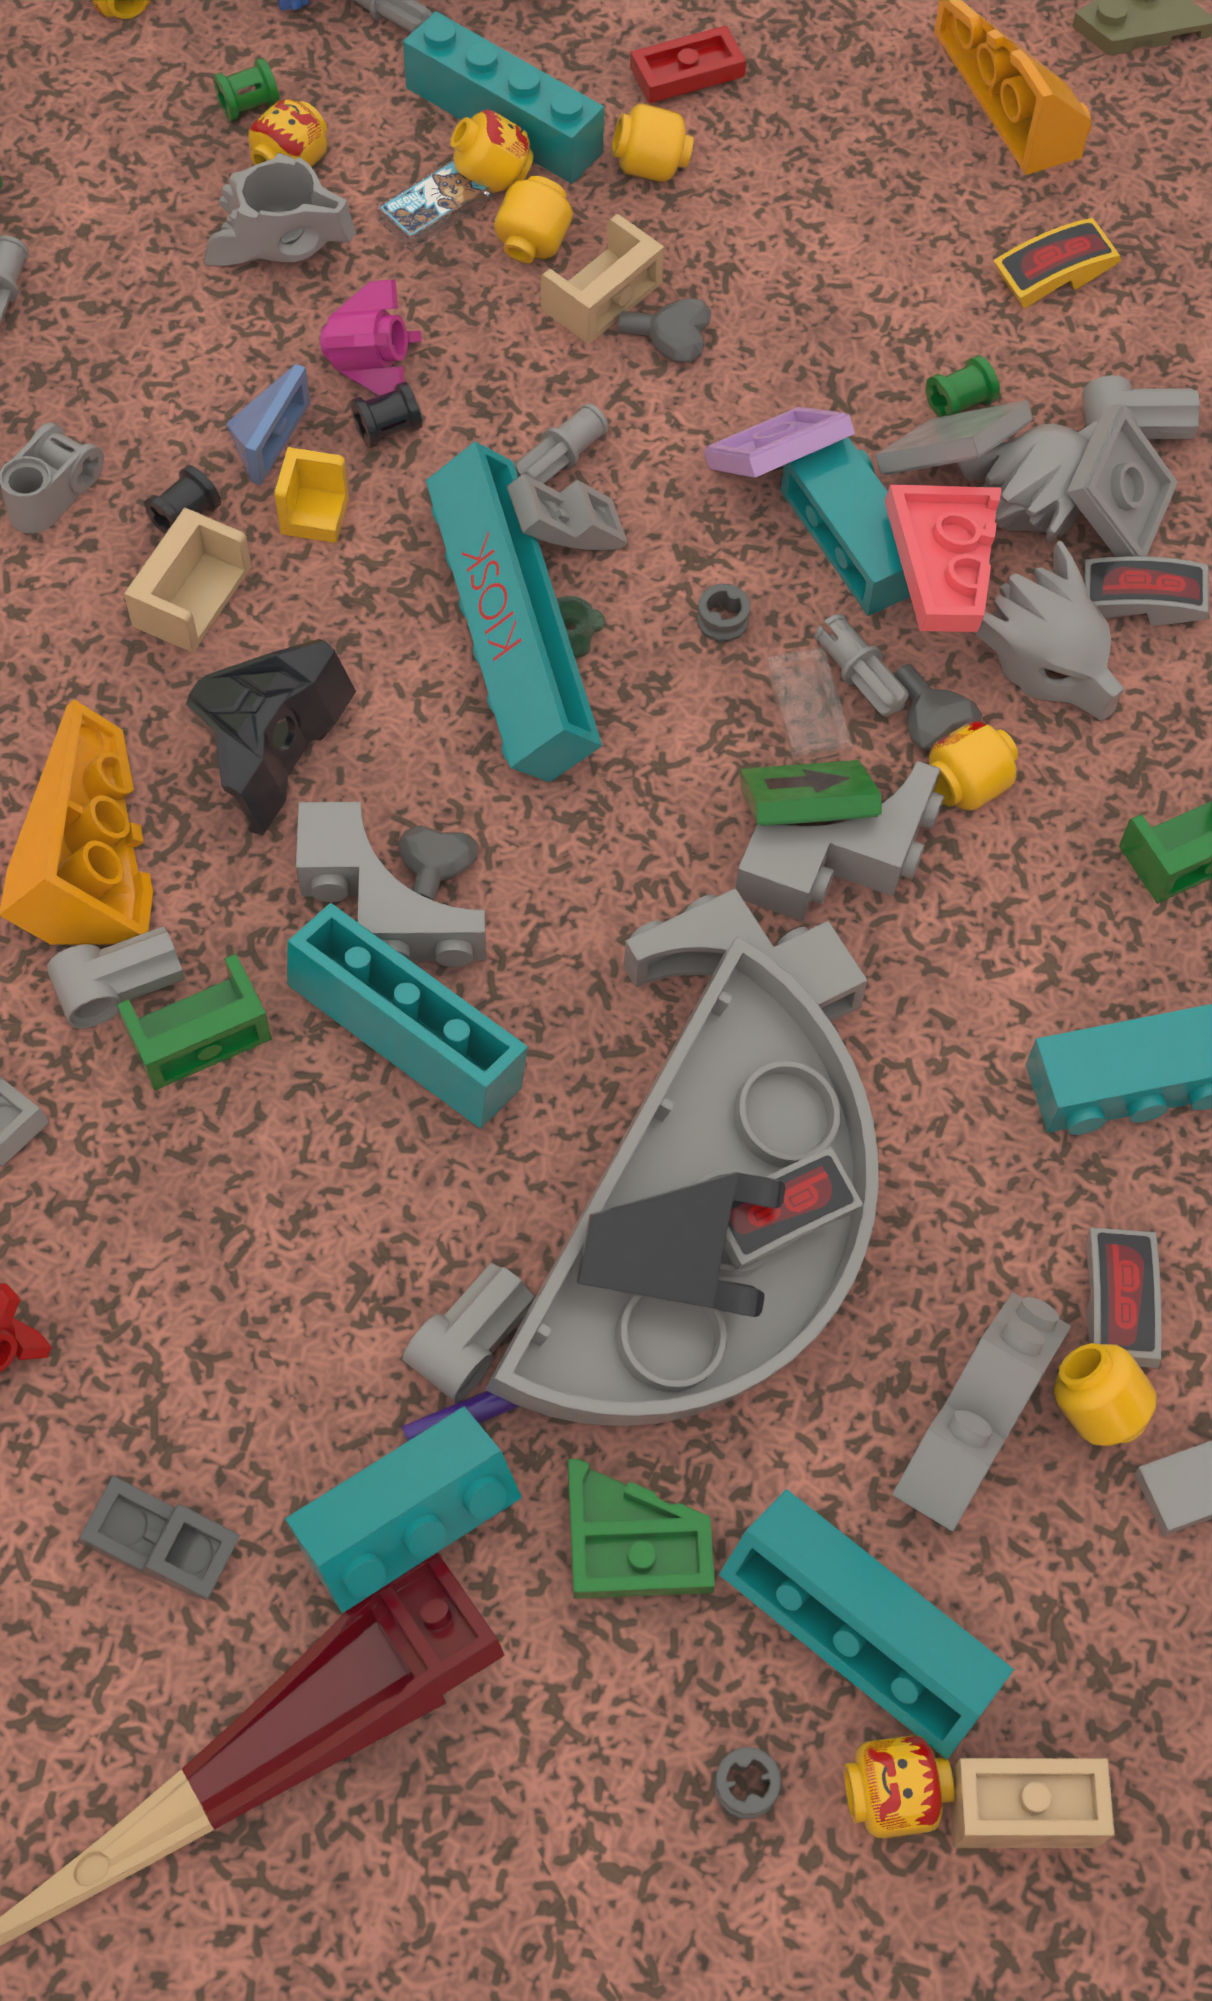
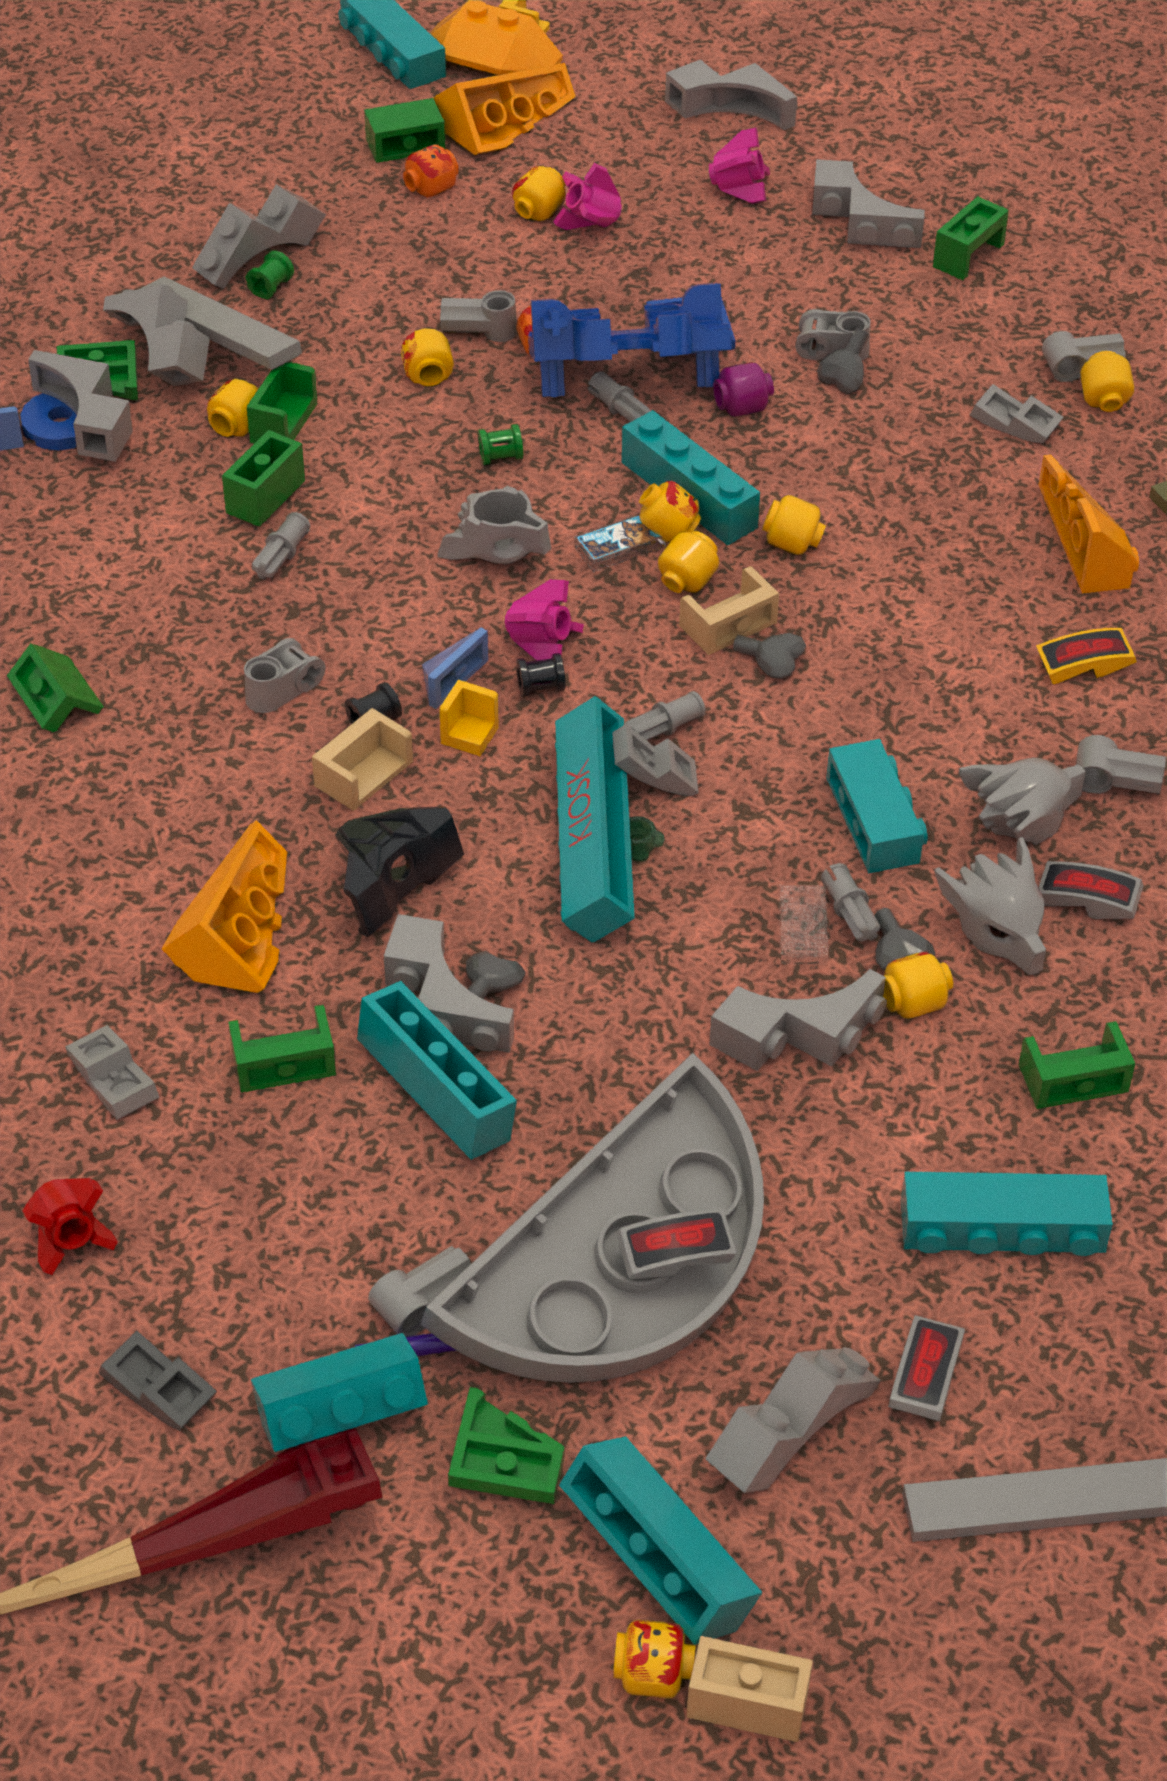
camera: 15 degrees right, 15 degrees down
(96, 980) = (213, 1005): light grey piece -> none
(291, 130) = (525, 473): yellow head -> none
(676, 1244) = (584, 1244): black flag -> none
(687, 64) = (838, 476): red plate -> none
(707, 928) = (752, 1088): light grey arch -> none
(711, 622) = (754, 861): dark grey bush -> none
(740, 1761) = (540, 1650): dark grey bush -> none
(778, 441) = (828, 737): lavender tile -> none
(810, 792) = (781, 977): green tile -> none
(945, 551) = (930, 827): coral wing -> none
(954, 438) = (962, 756): light grey tile -> none
(963, 388) = (984, 729): green bush -> none
(1104, 1394) = (889, 1425): yellow head -> none
(1122, 484) = (1087, 811): light grey tile -> none

